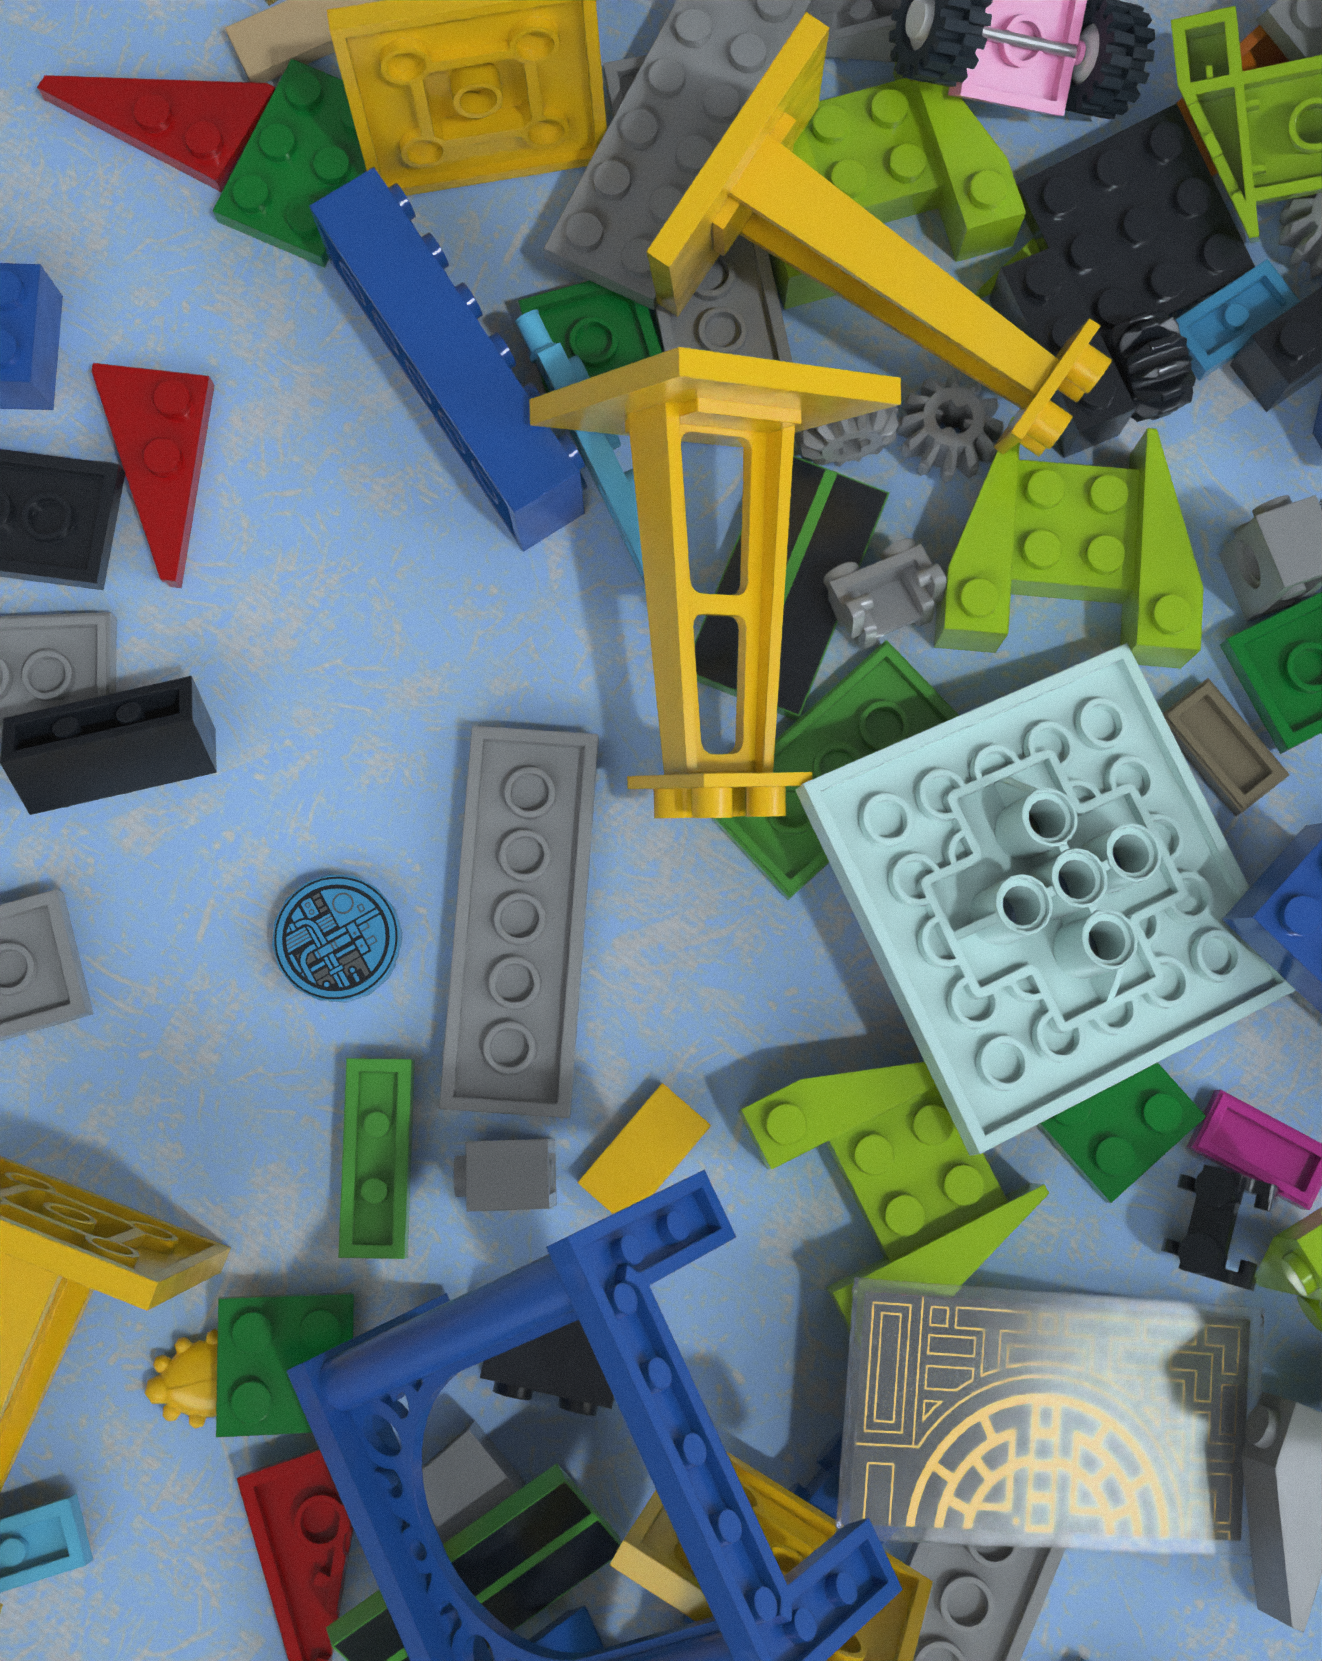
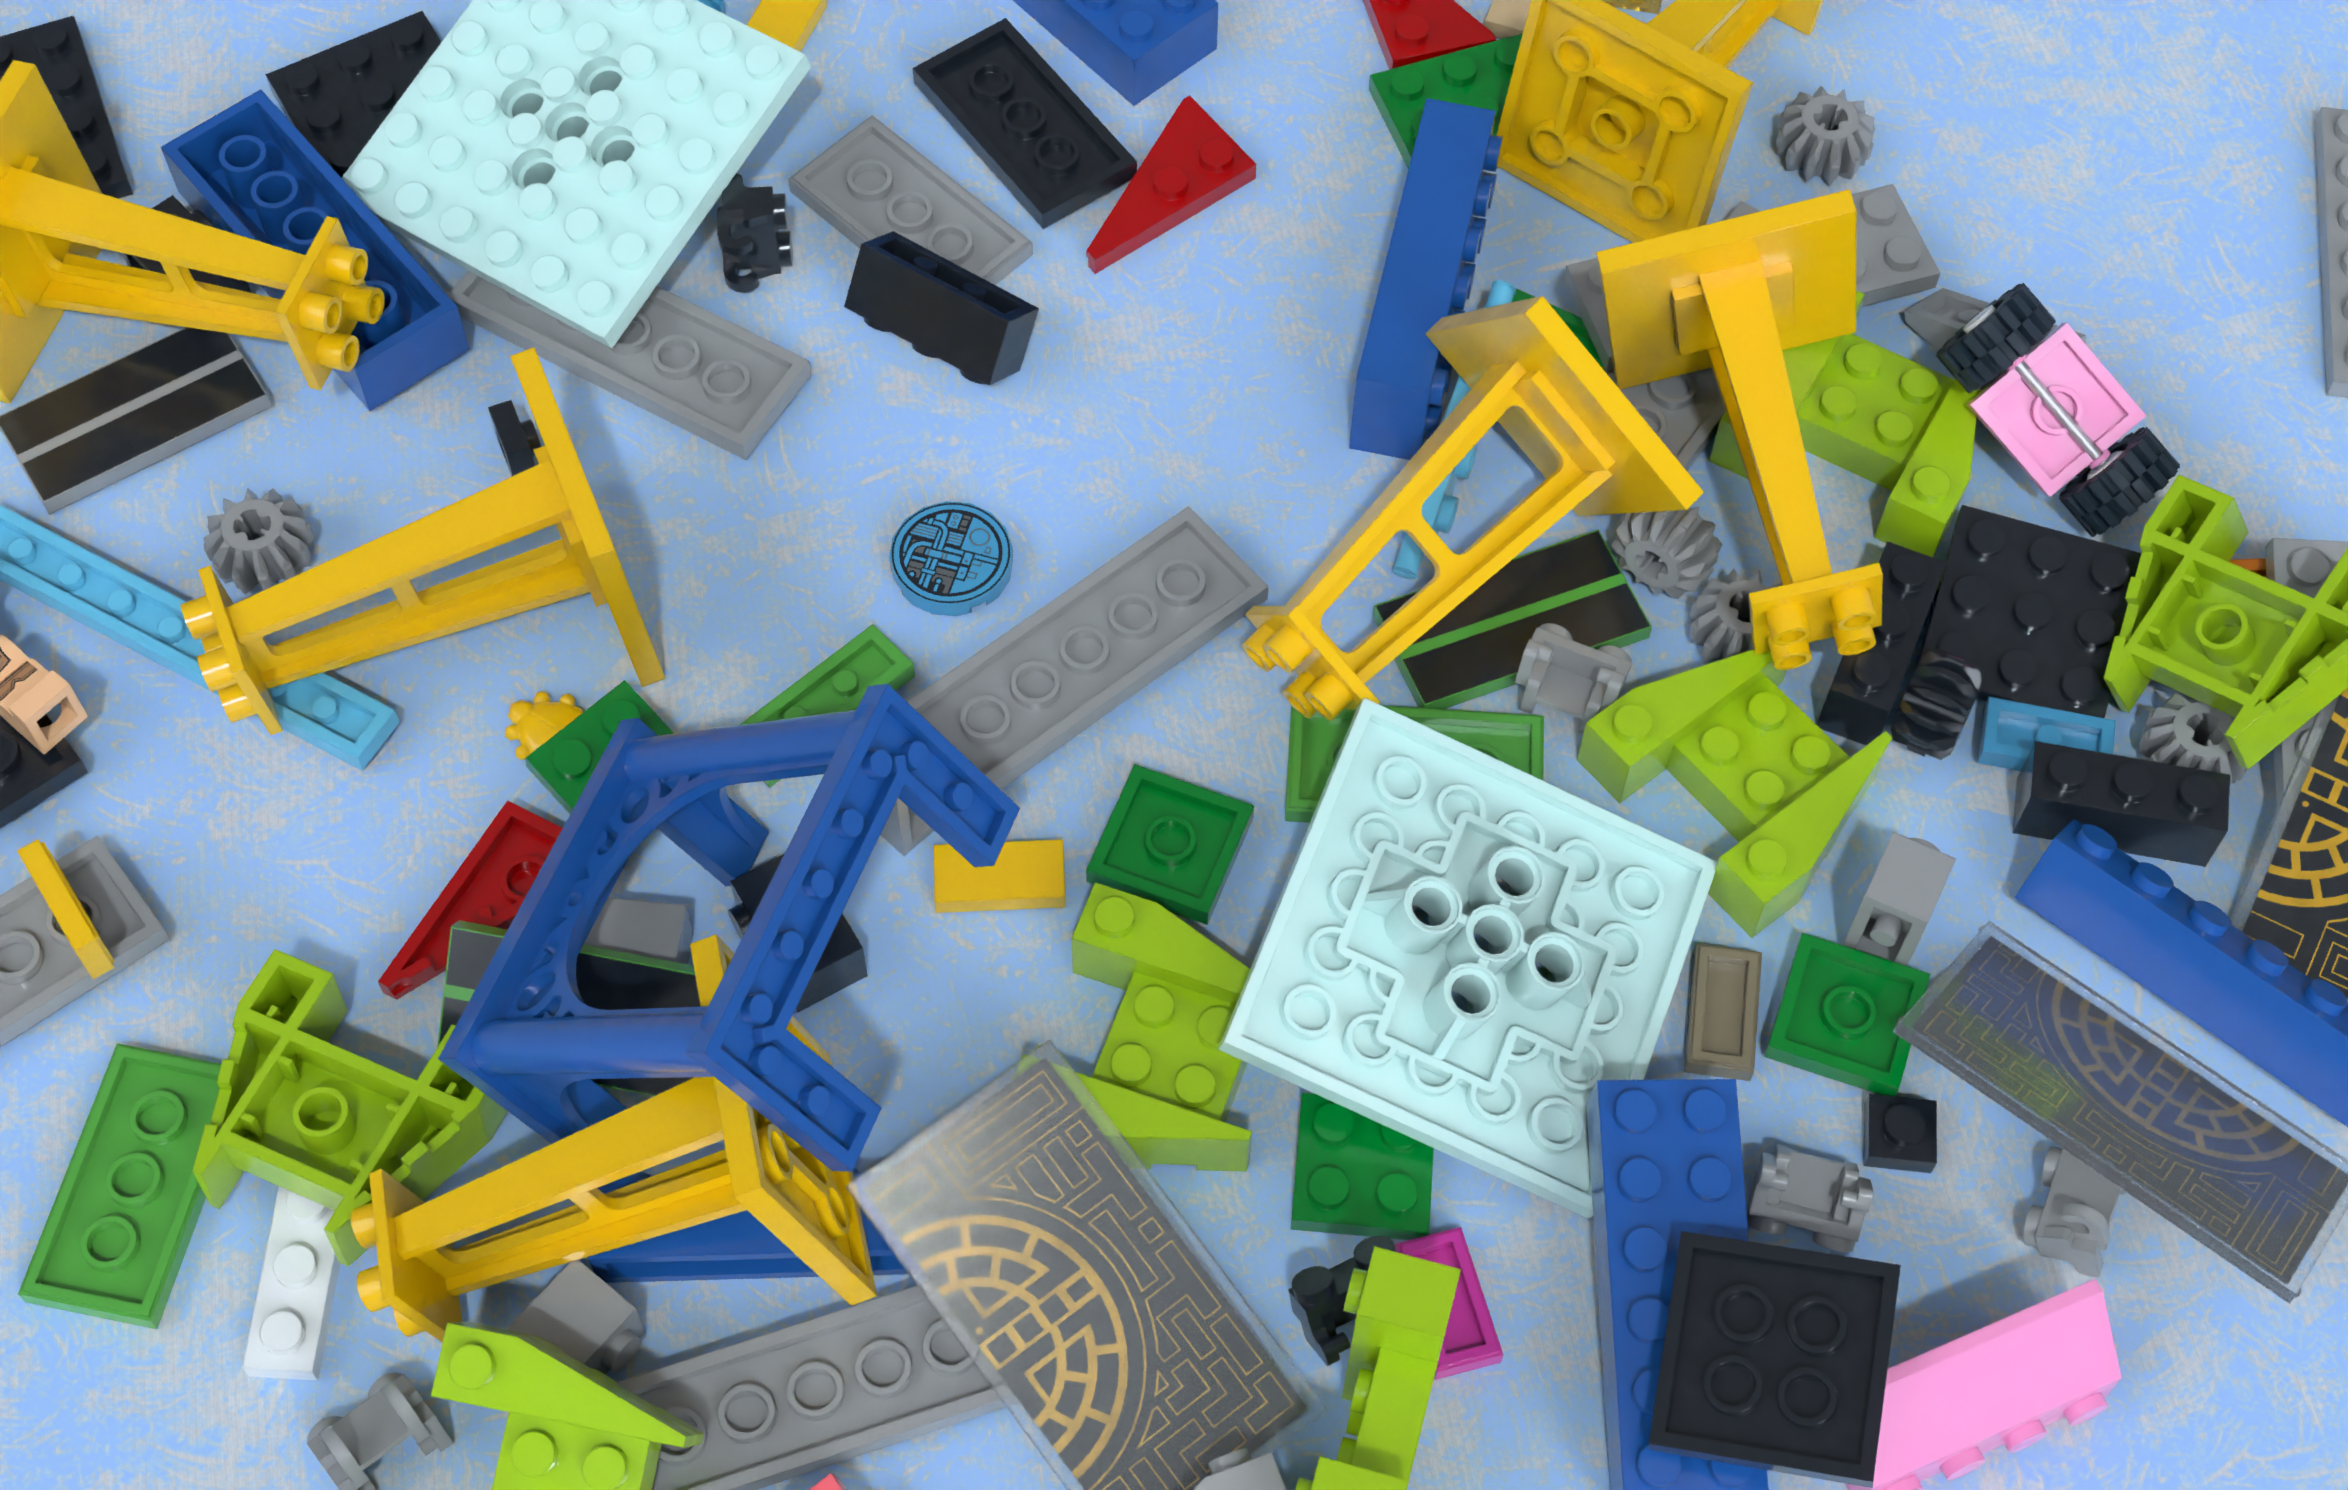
camera: 45 degrees right, 20 degrees down
(739, 1007) = (1170, 843): none -> green plate

